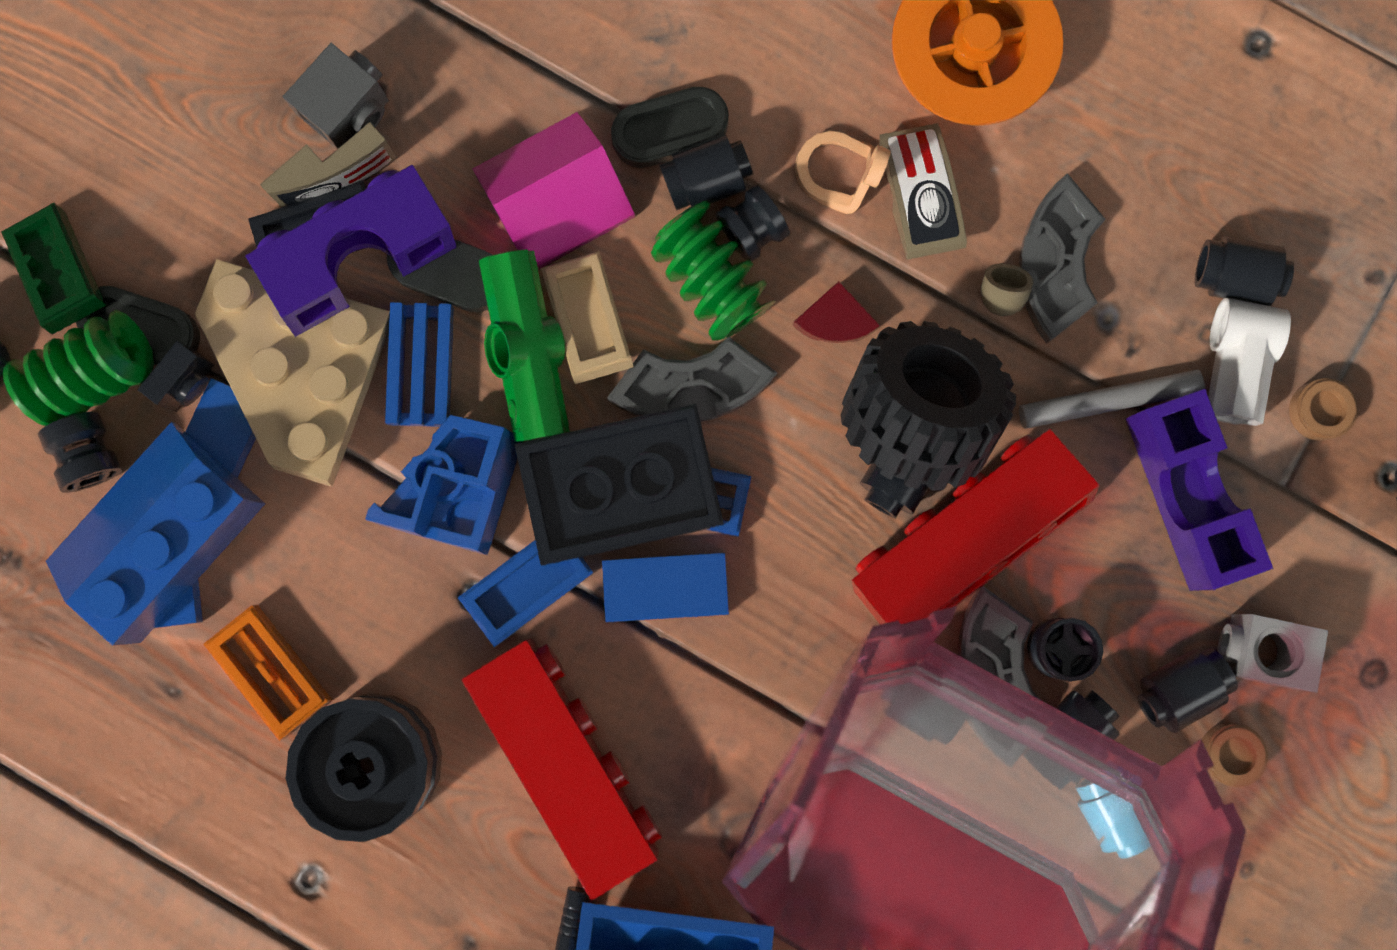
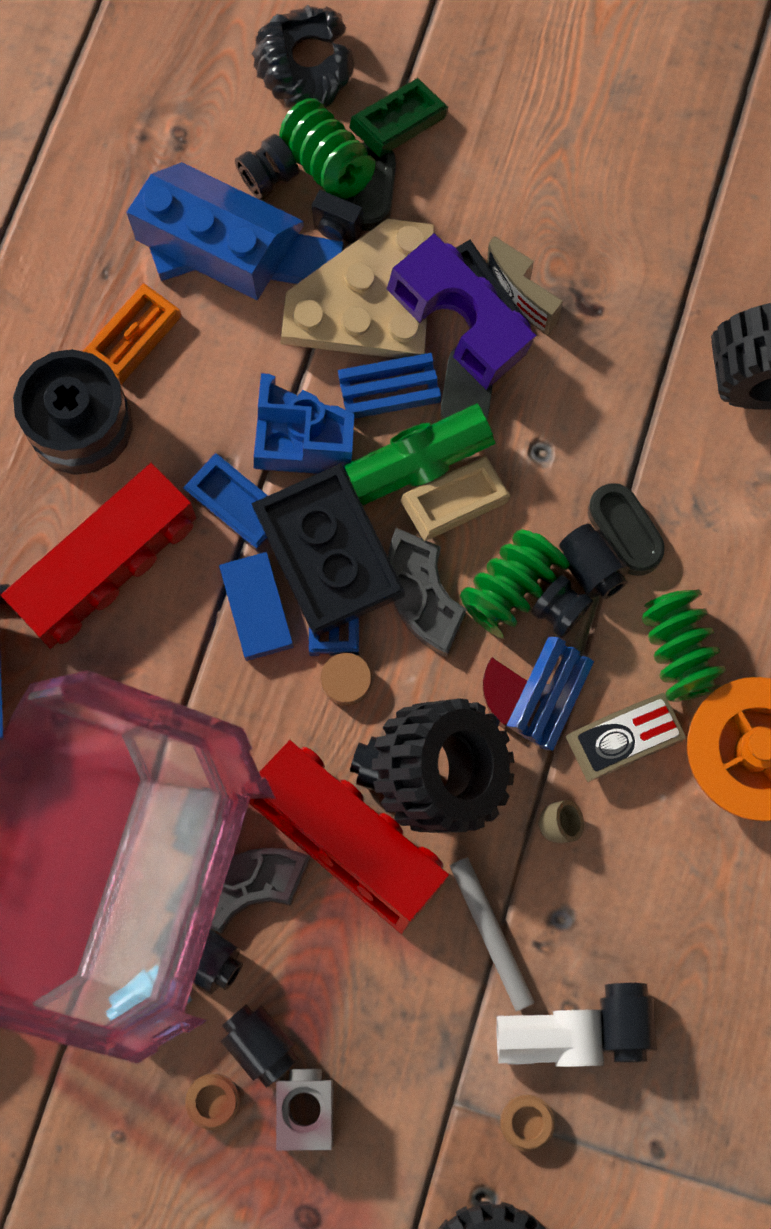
camera: 80 degrees right, 10 degrees down
(338, 95) = (580, 278): dark grey brick -> none
(555, 190) = (548, 452): dark pink slope -> none
(780, 499) = (346, 679): none -> medium nougat tile
(832, 93) = (682, 645): none -> green piece
(853, 263) = (556, 698): none -> blue tile
(876, 163) = (626, 686): light nougat piece -> none
(1055, 256) = (600, 860): dark grey tile -> none
(1078, 649) = (268, 925): black wheel -> none
(1207, 530) = (426, 1013): dark purple arch -> none

